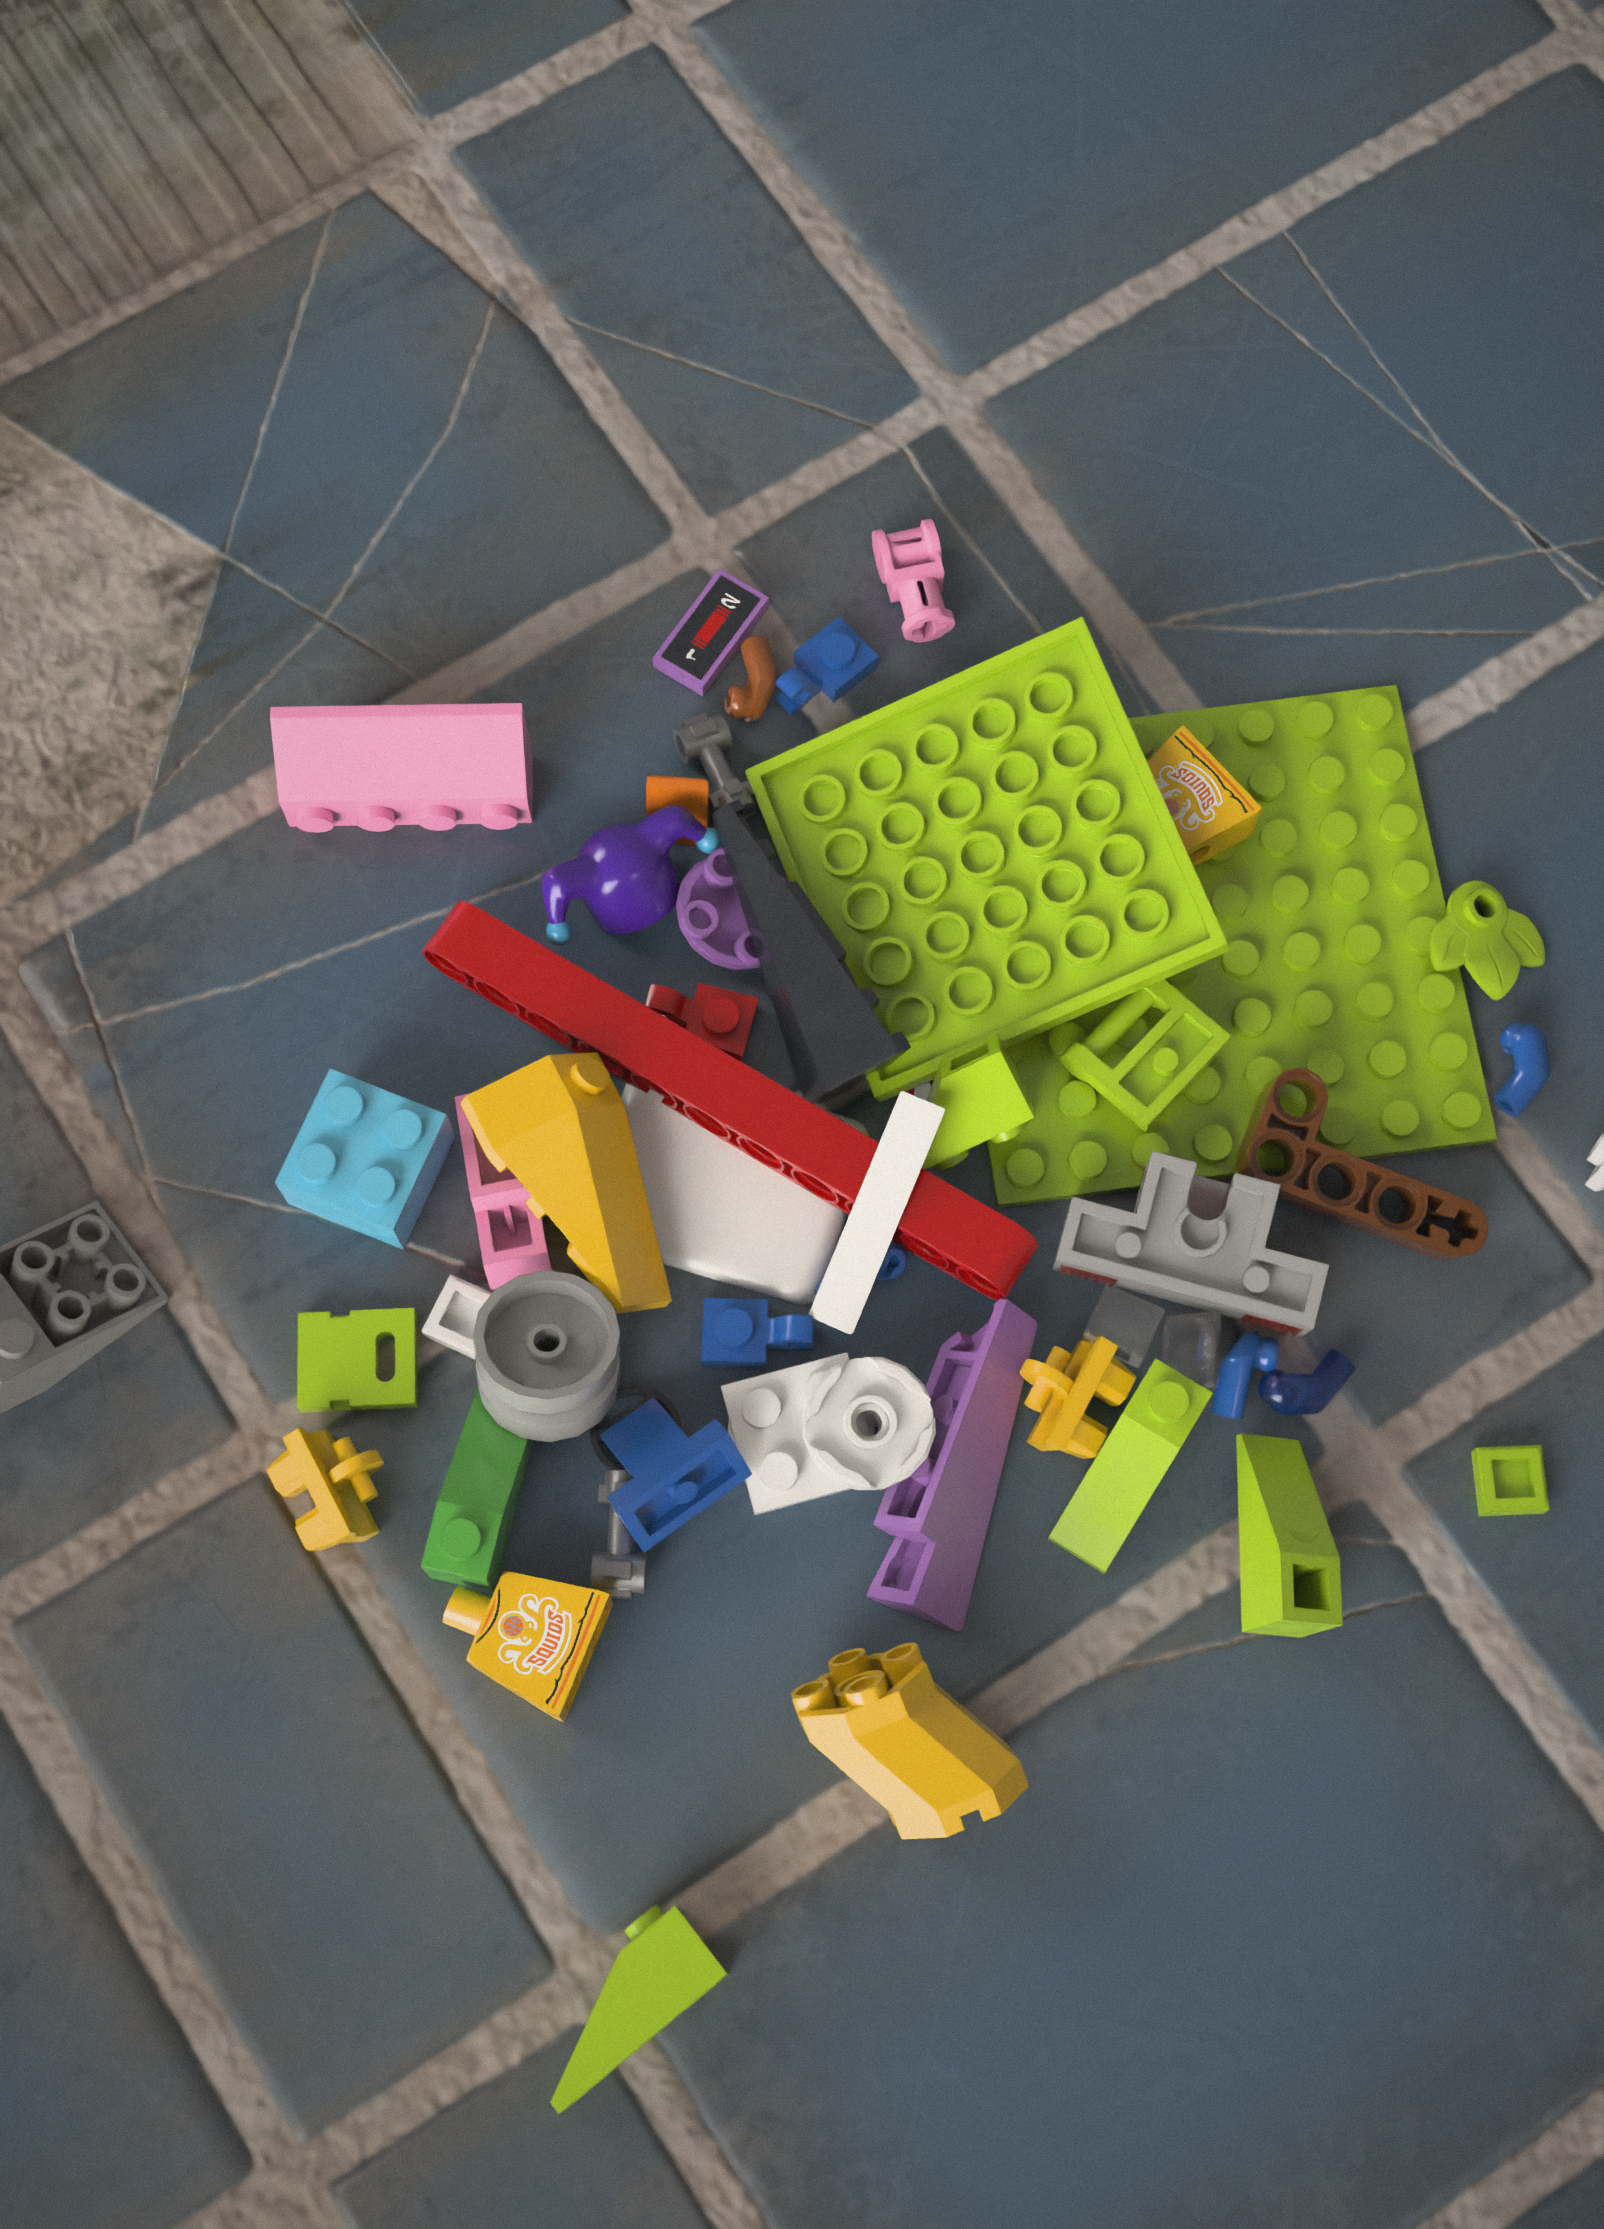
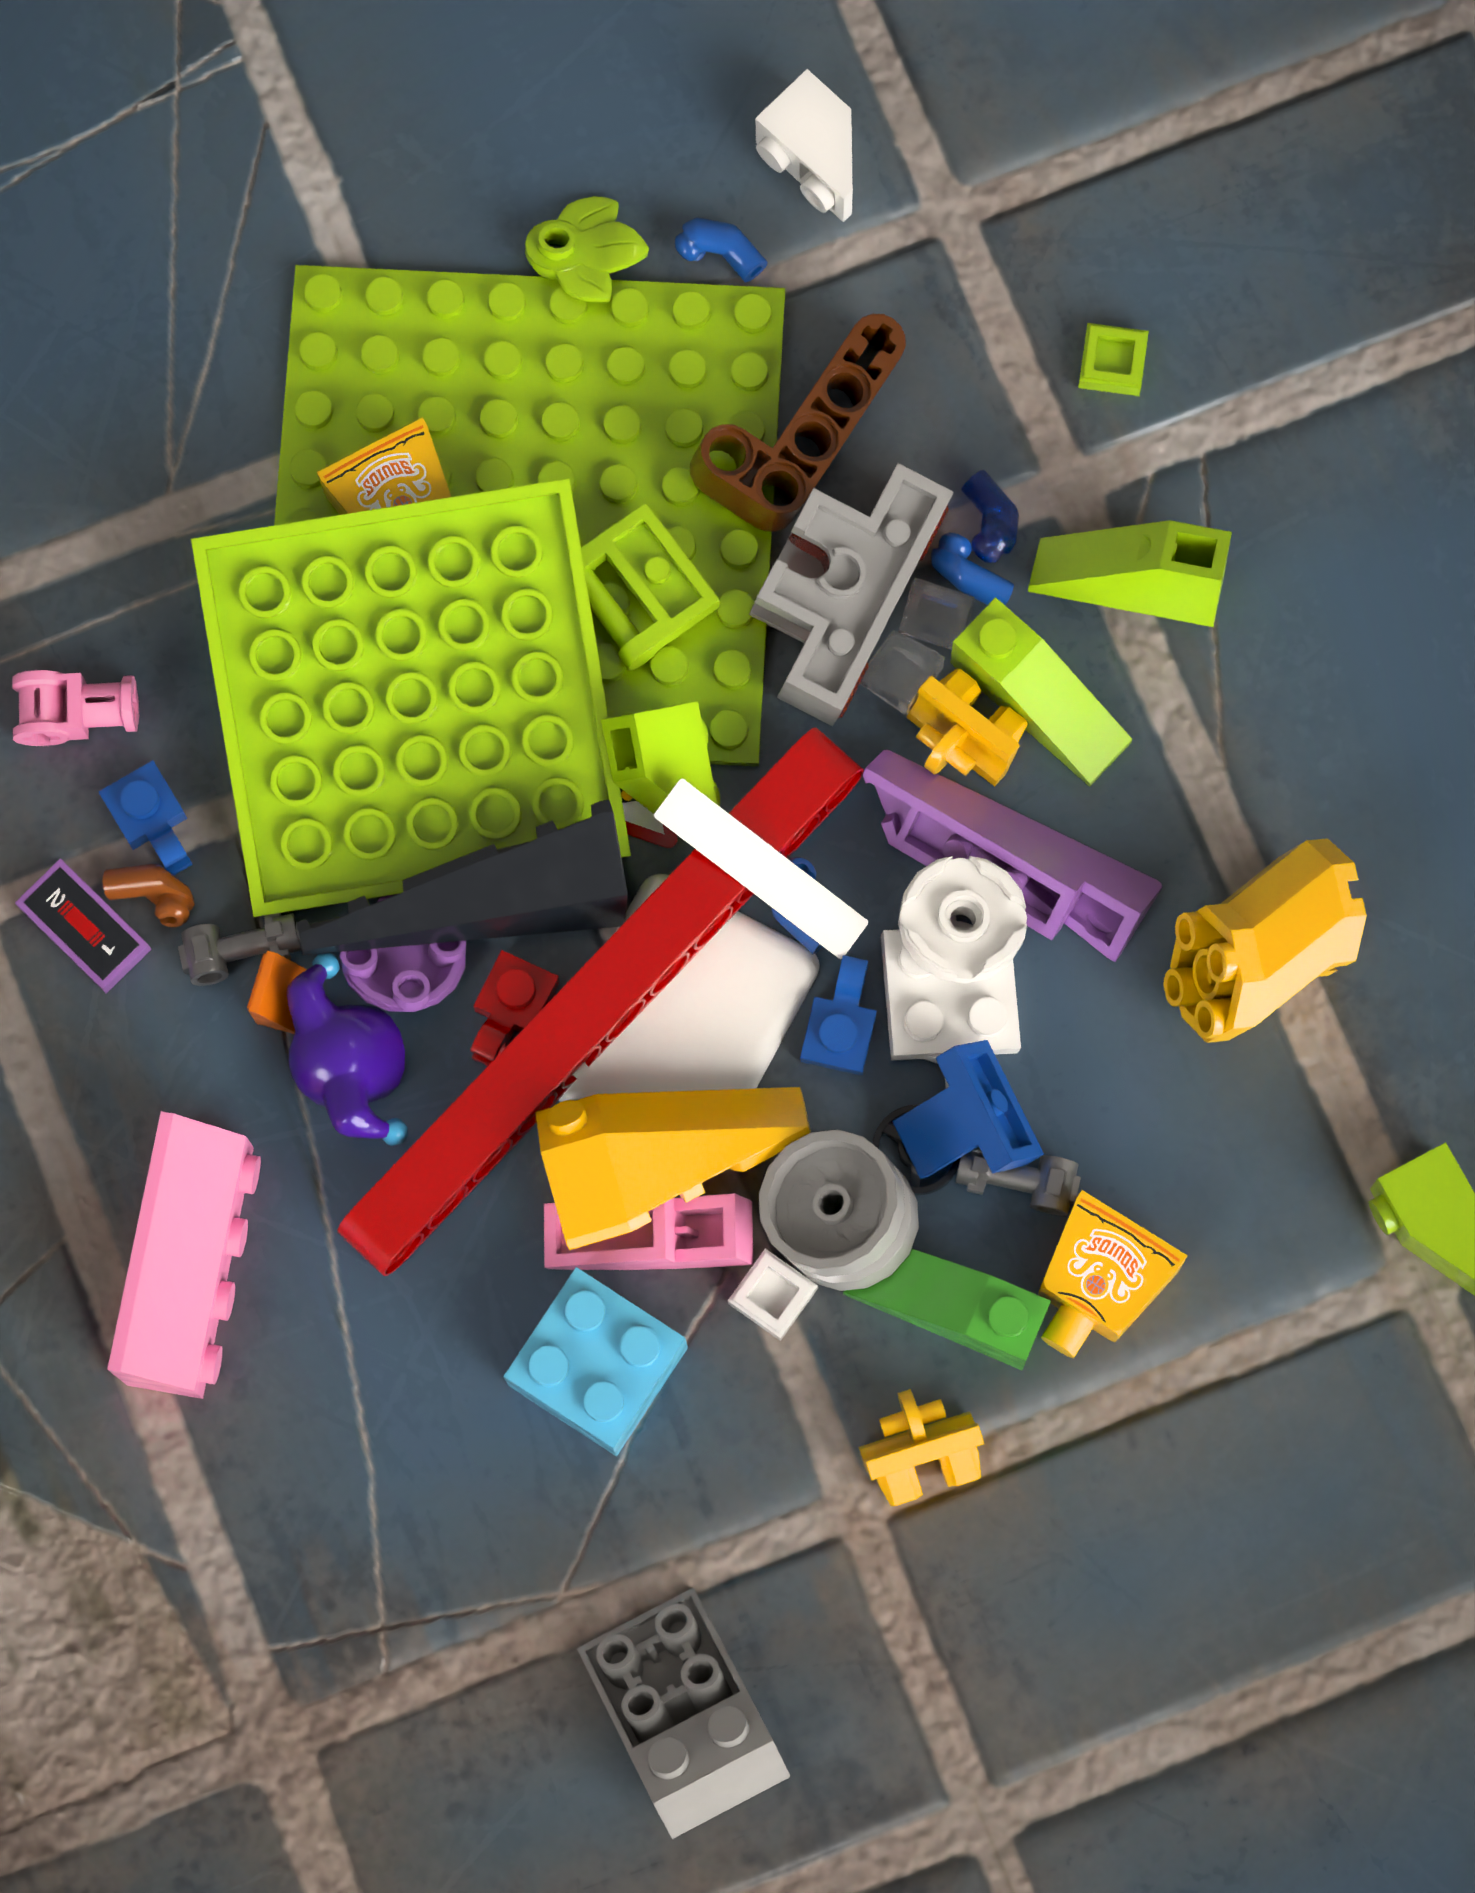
camera: 75 degrees left, 5 degrees up
(342, 1360) = (792, 1422): lime piece -> none

